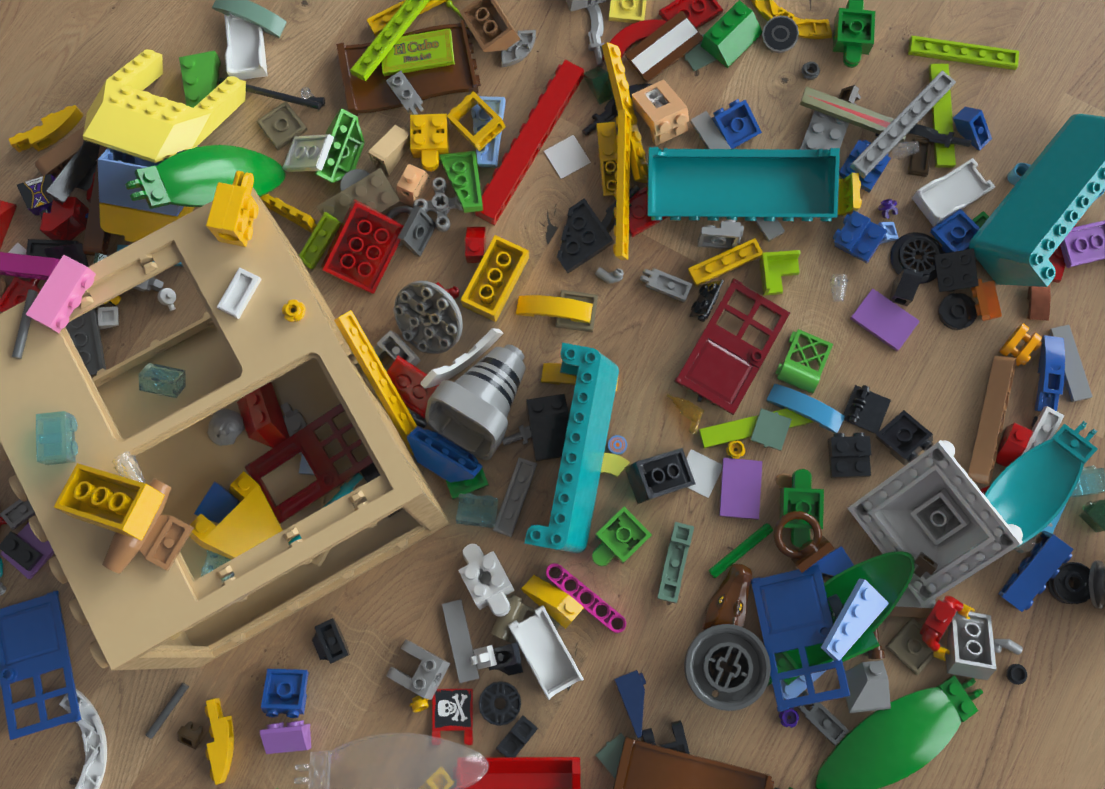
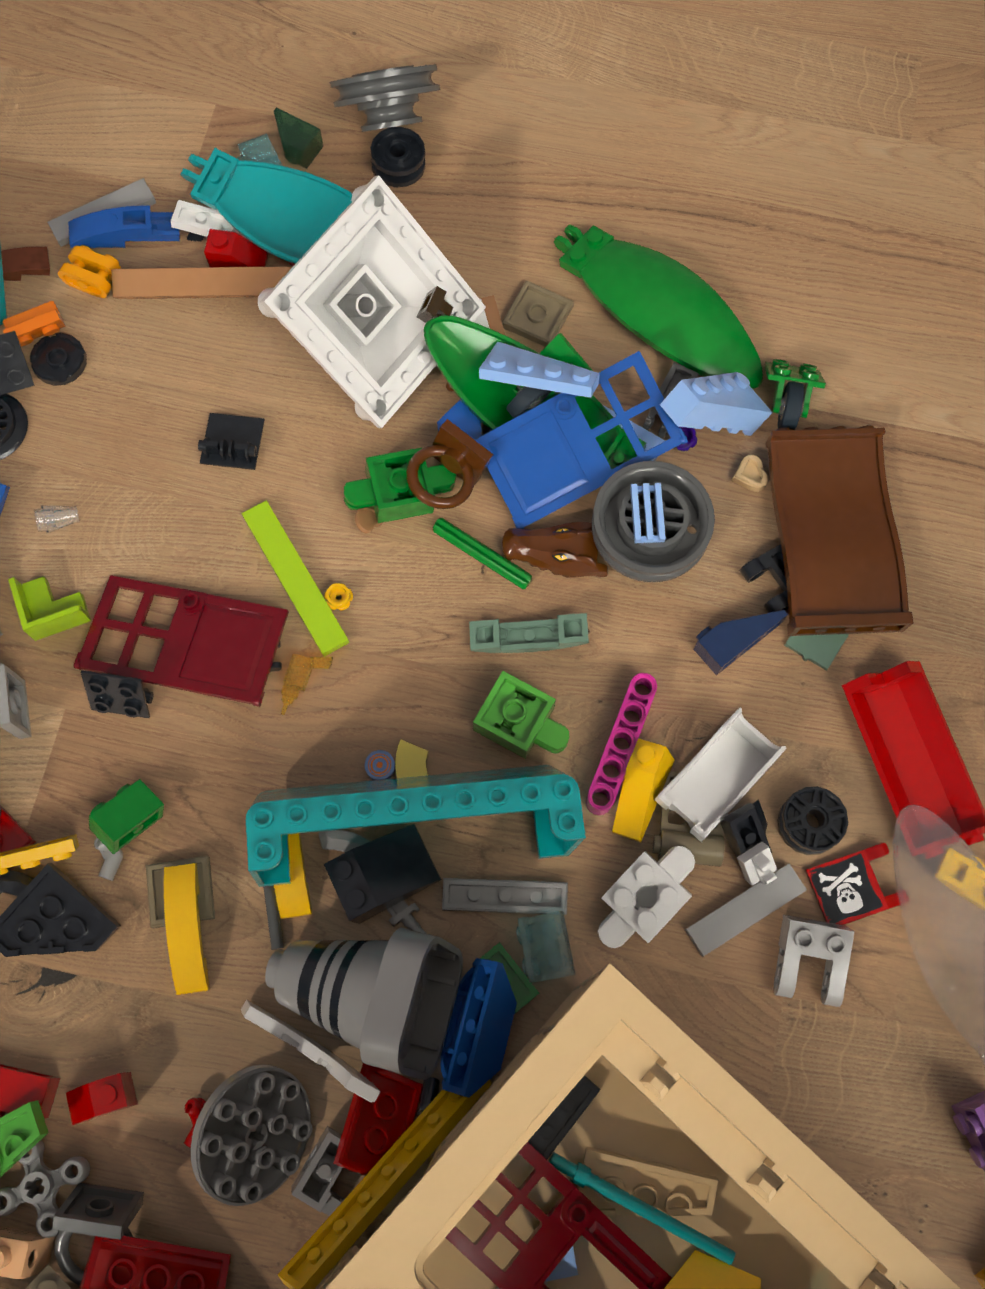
camera: 110 degrees left, 5 degrees down
(285, 692) = (926, 1163): blue plate -> none
(330, 642) = (824, 1115): black slope -> none
(419, 704) = (861, 942): yellow plate -> none
(495, 278) = (155, 1042): yellow brick -> none
(517, 738) = (849, 783): black slope -> none
(542, 359) = (273, 917): none -> dark grey bar
(629, 289) = (125, 815): none -> green brick
(659, 475) = (410, 690): black slope -> none
(666, 284) = (104, 763): light grey hinge -> none
(704, 471) = (387, 639): white sticker -> none
(725, 262) = (49, 686): yellow plate -> none
(740, 488) = (393, 576): medium lavender tile -> none
(748, 666) = (646, 489): none -> light blue tile
(749, 756) = (751, 474): none -> tan tile
(771, 429) = (296, 555): sand green piece -> none
(802, 375) = (203, 537): bright green piece -> none
(803, 746) = (717, 404): none -> light blue wedge
(806, 406) = (249, 519): dark azure slope -> none
(849, 455) = (305, 446): black plate -> none
(868, 687) = (610, 343): light grey slope -> none
(884, 320) = (92, 447): medium lavender tile -> none
(905, 287) = (36, 426): black slope -> none
(905, 437) = (260, 381): black plate -> none
(939, 621) = (500, 282): red torso -> none
(971, 646) = (514, 249): light grey slope -> none
(1007, 644) = (501, 221): light grey arm -> none
(1016, 674) = (532, 194): black plate -> none
(1036, 571) = (423, 202): blue wedge -> none

